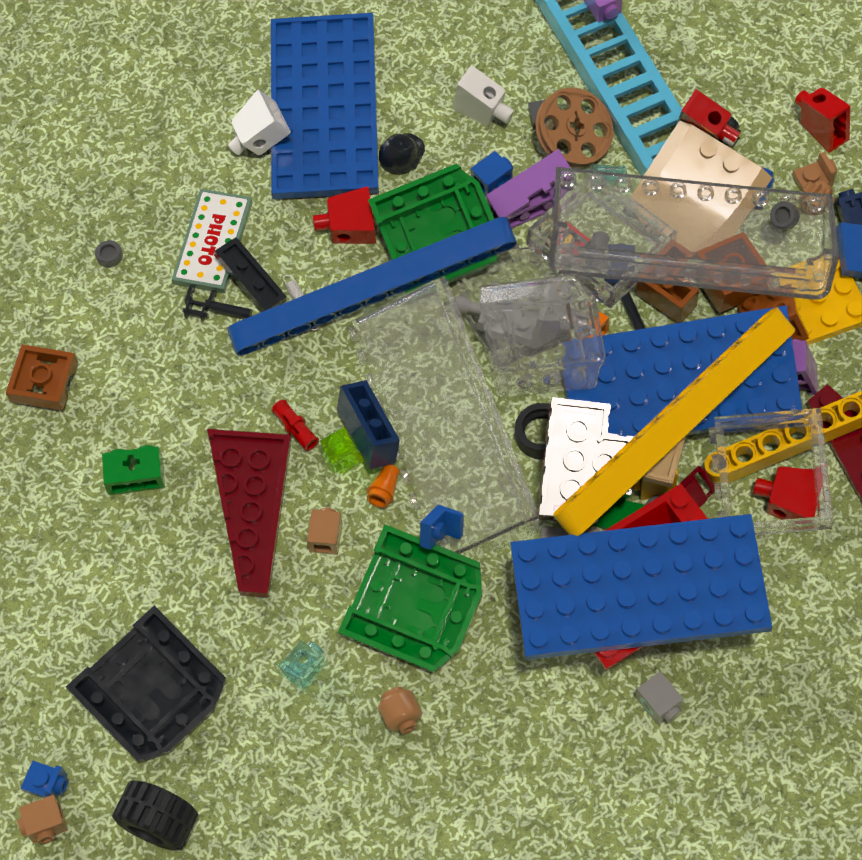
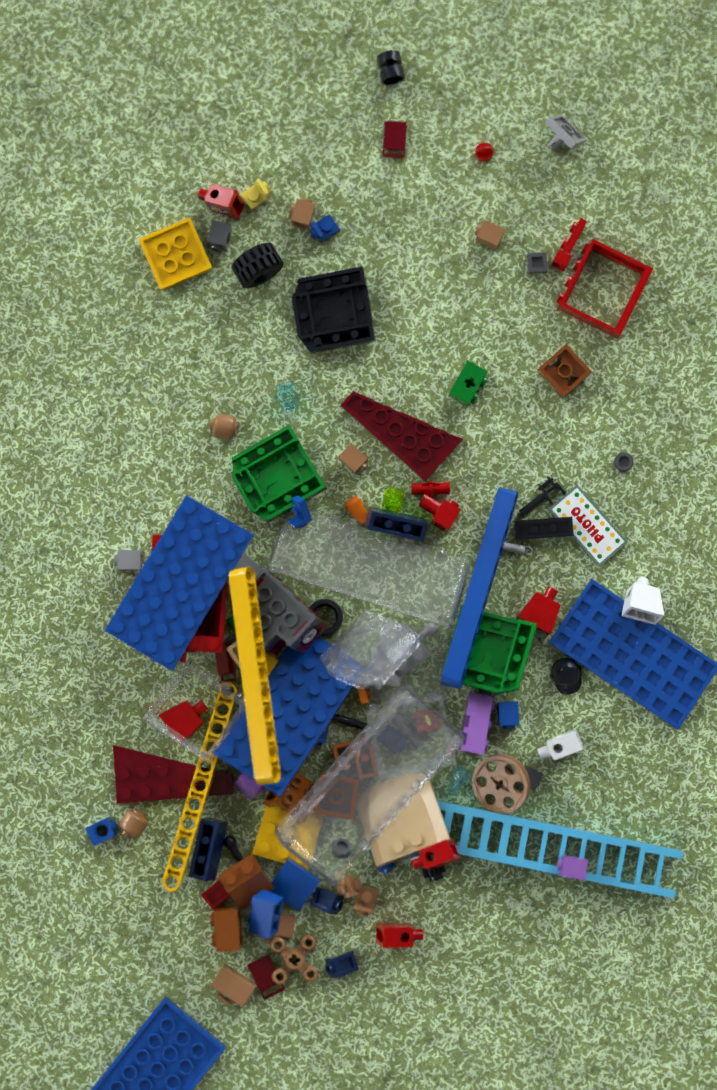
camera: 120 degrees right, 20 degrees up
(316, 383) = (443, 512): none -> red brick

